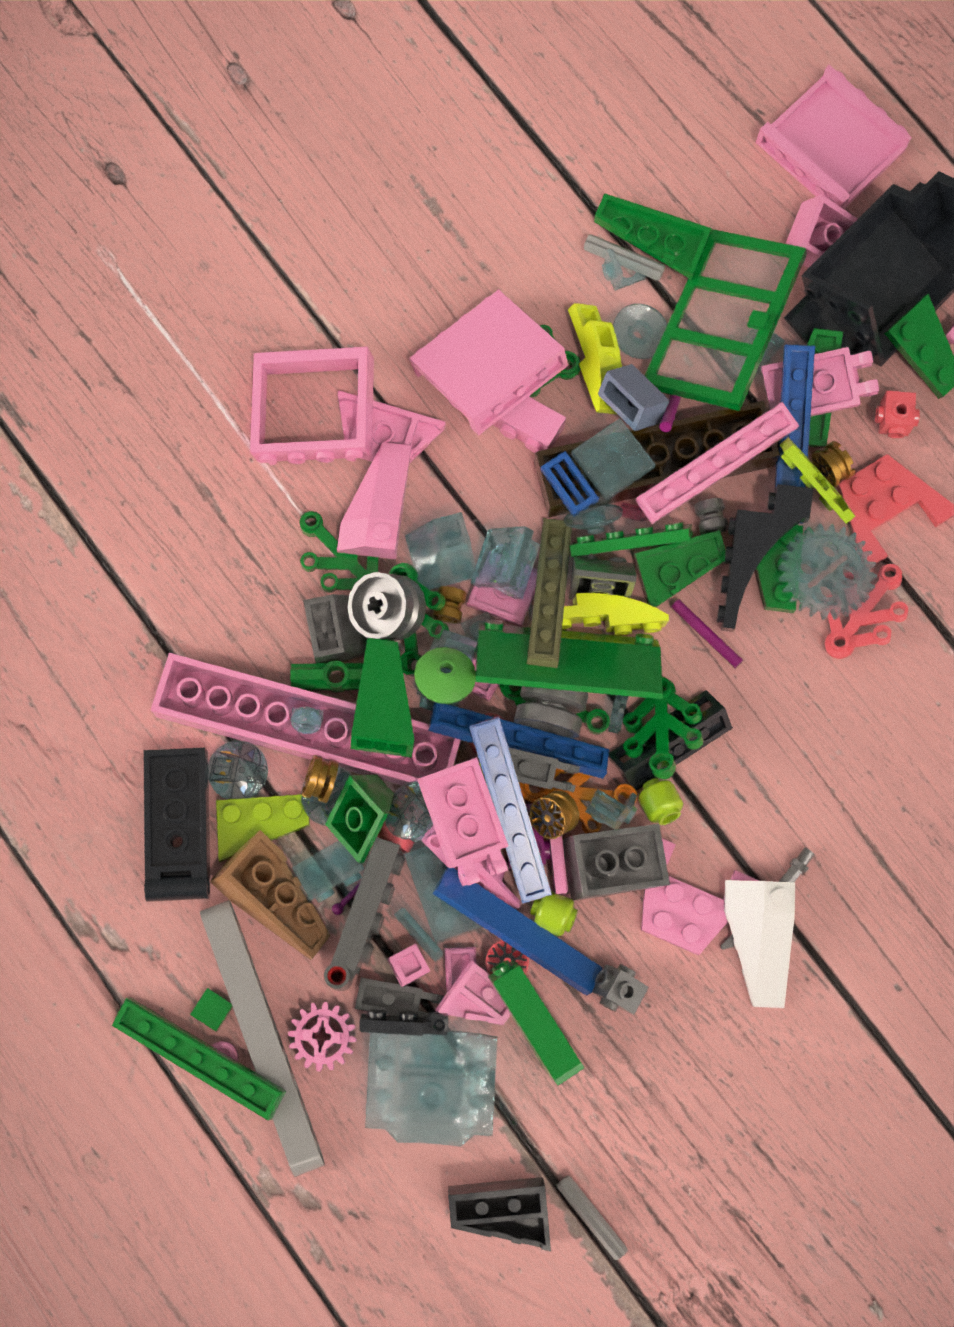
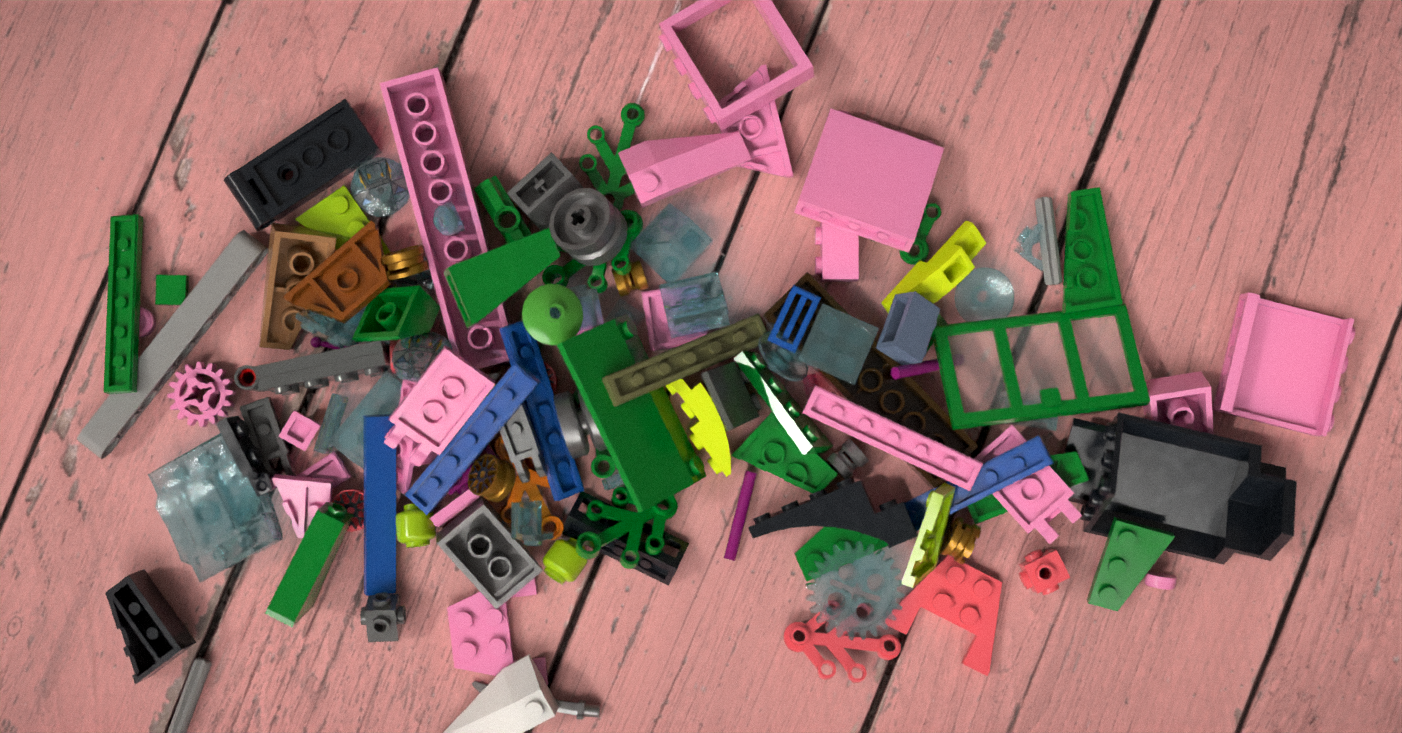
camera: 60 degrees right, 10 degrees up
(301, 842) = (345, 279): none -> dark orange wing

